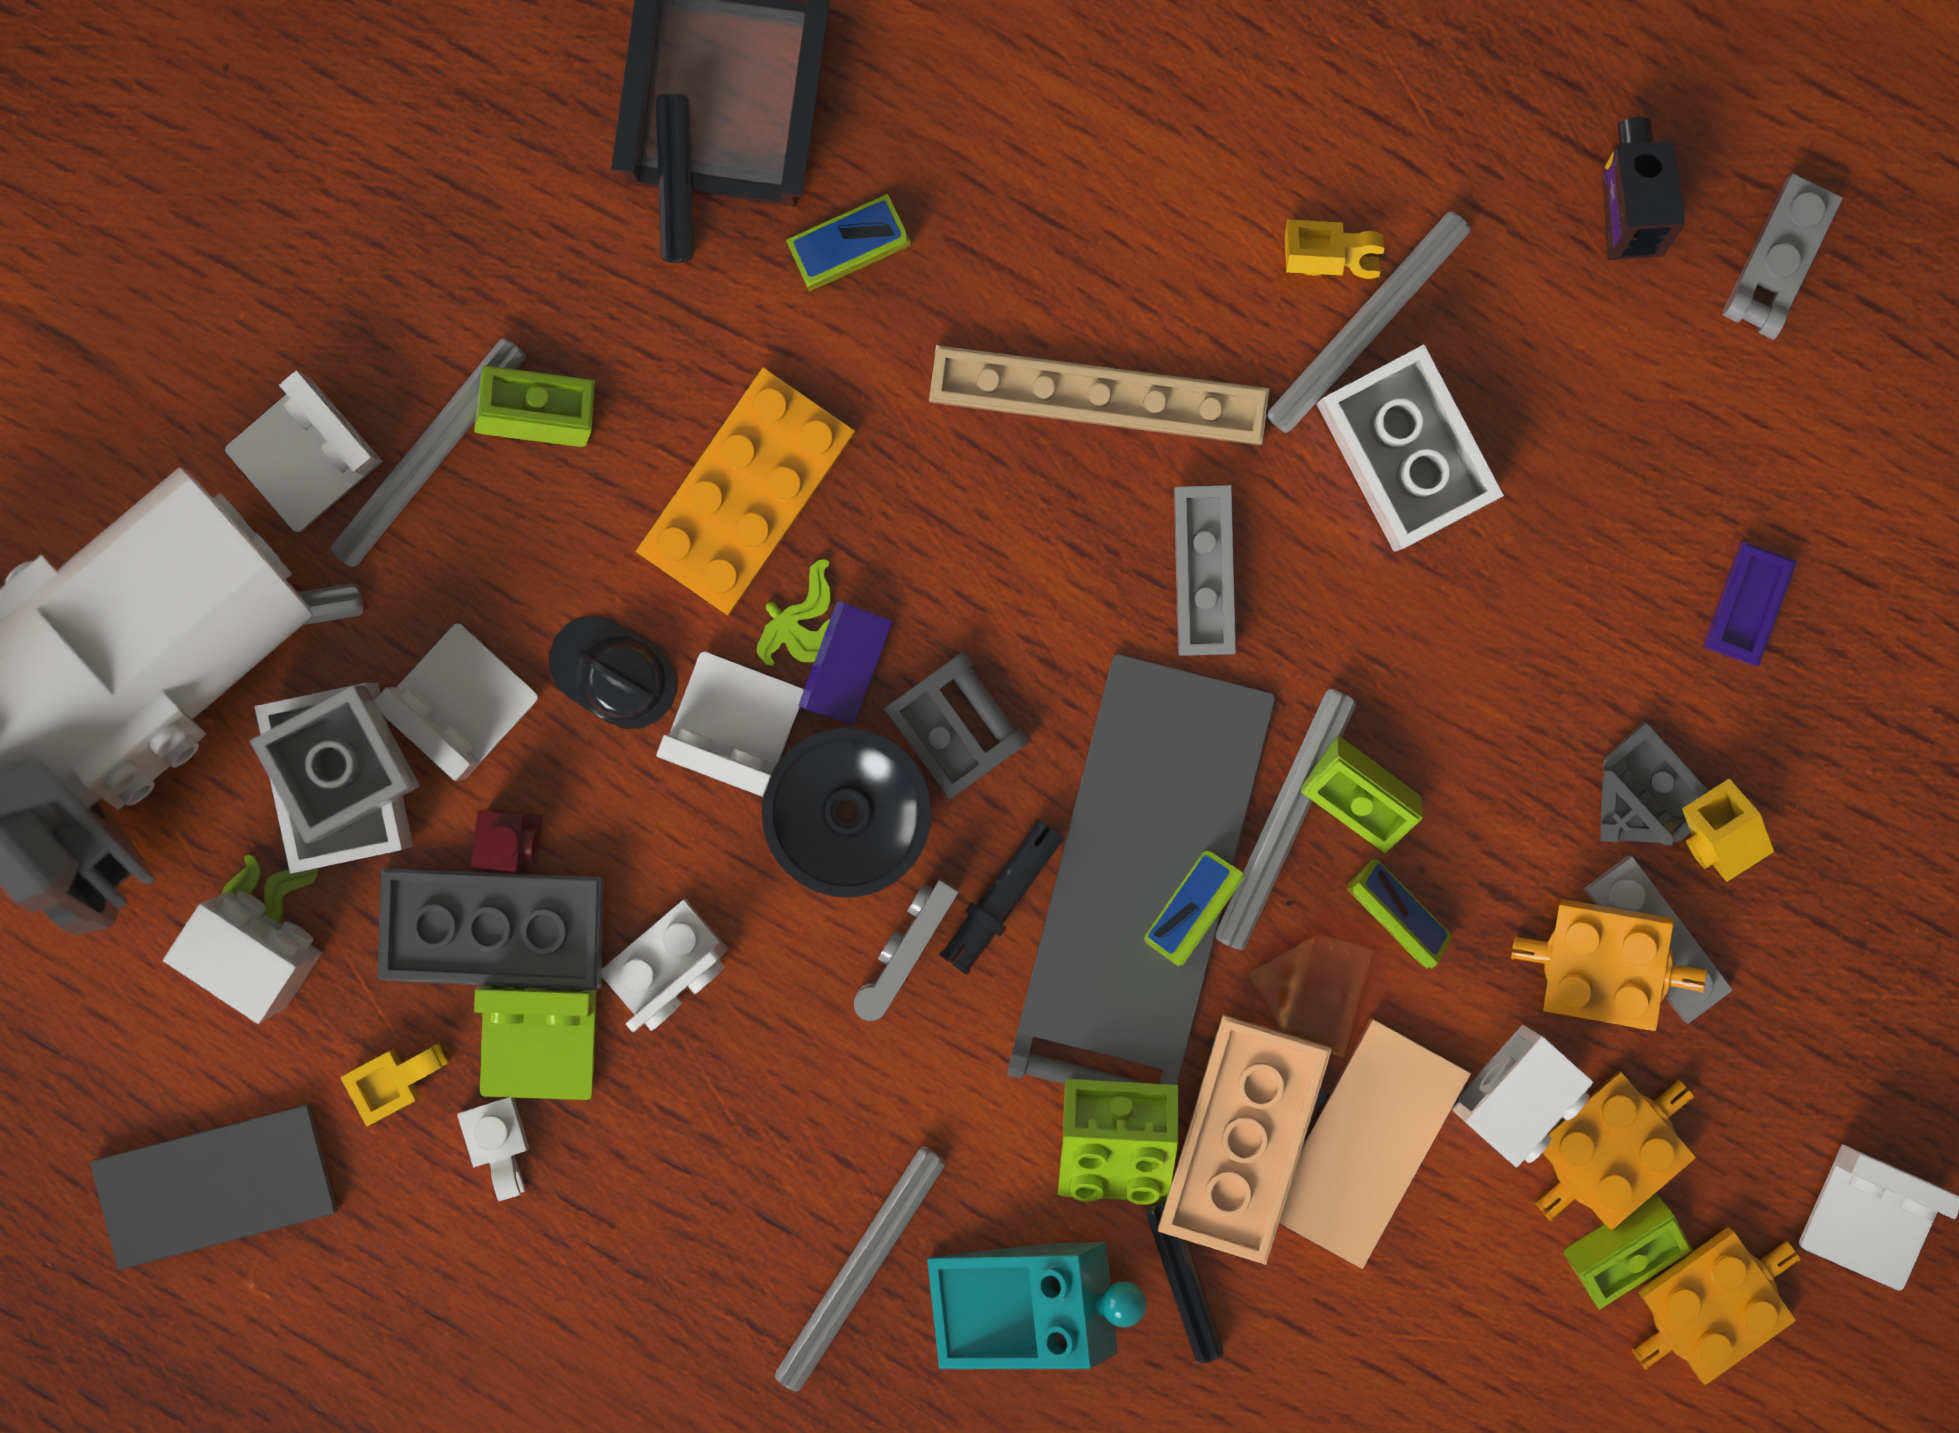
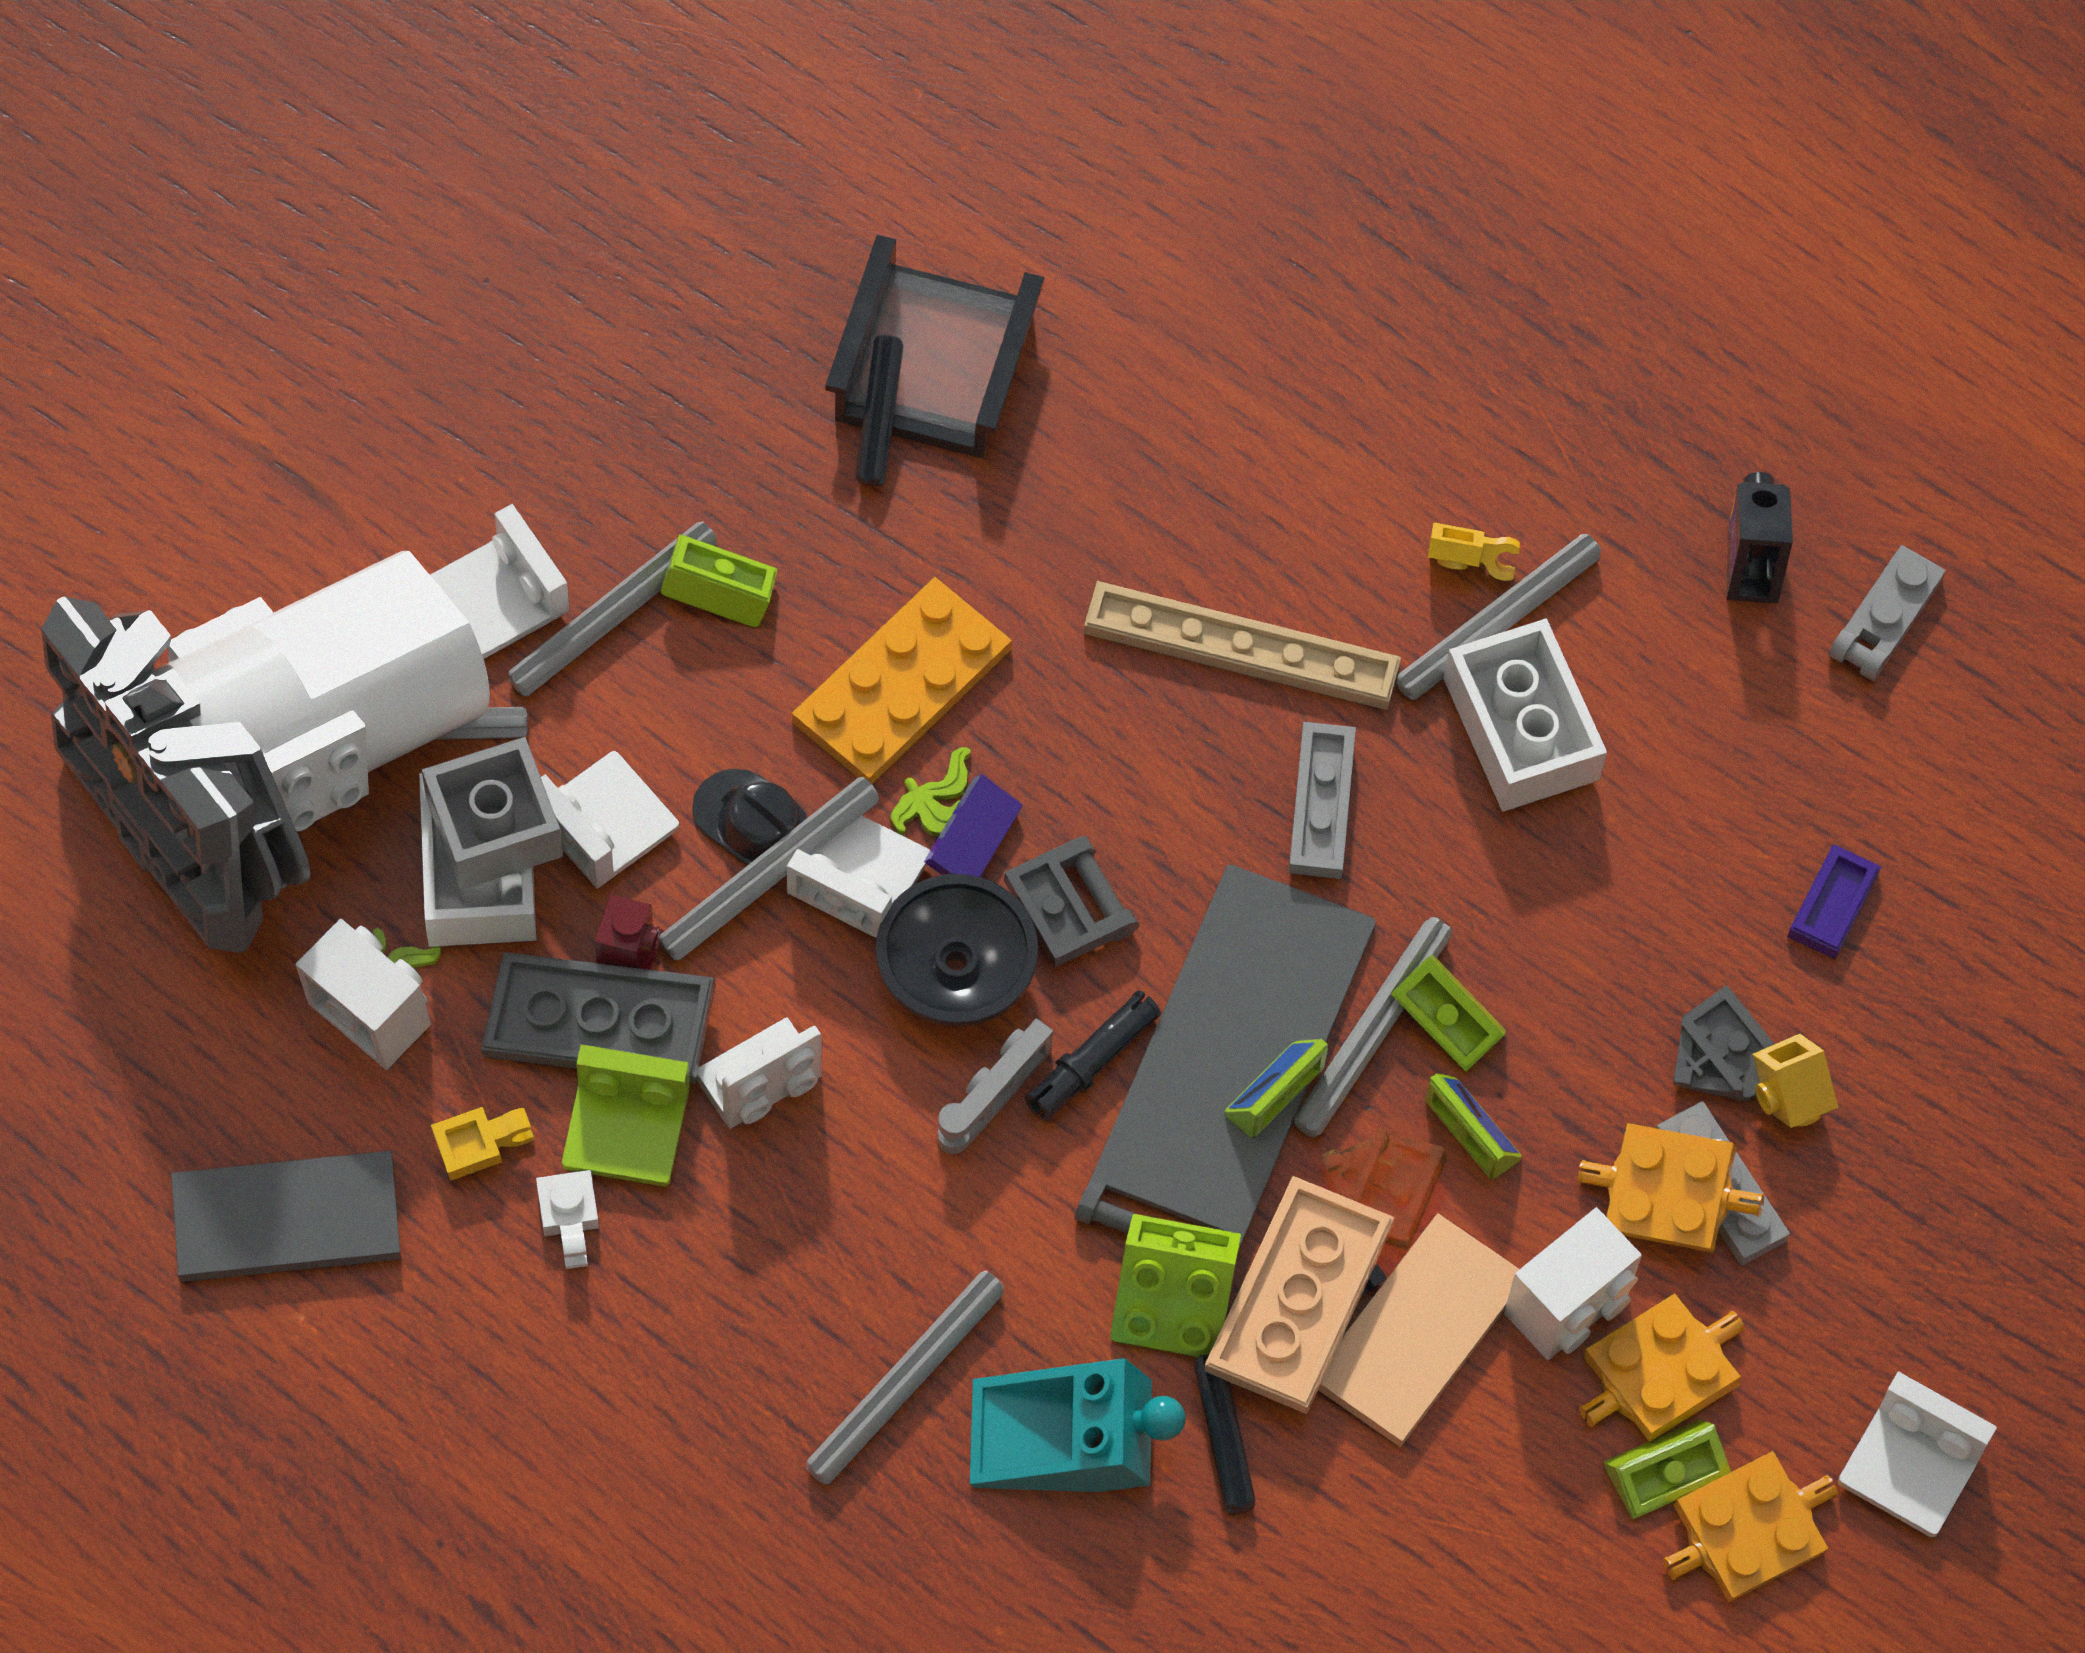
camera: 10 degrees right, 25 degrees down
(639, 738) = (768, 868): none -> light grey axle
(848, 242) = (1029, 491): slope -> none

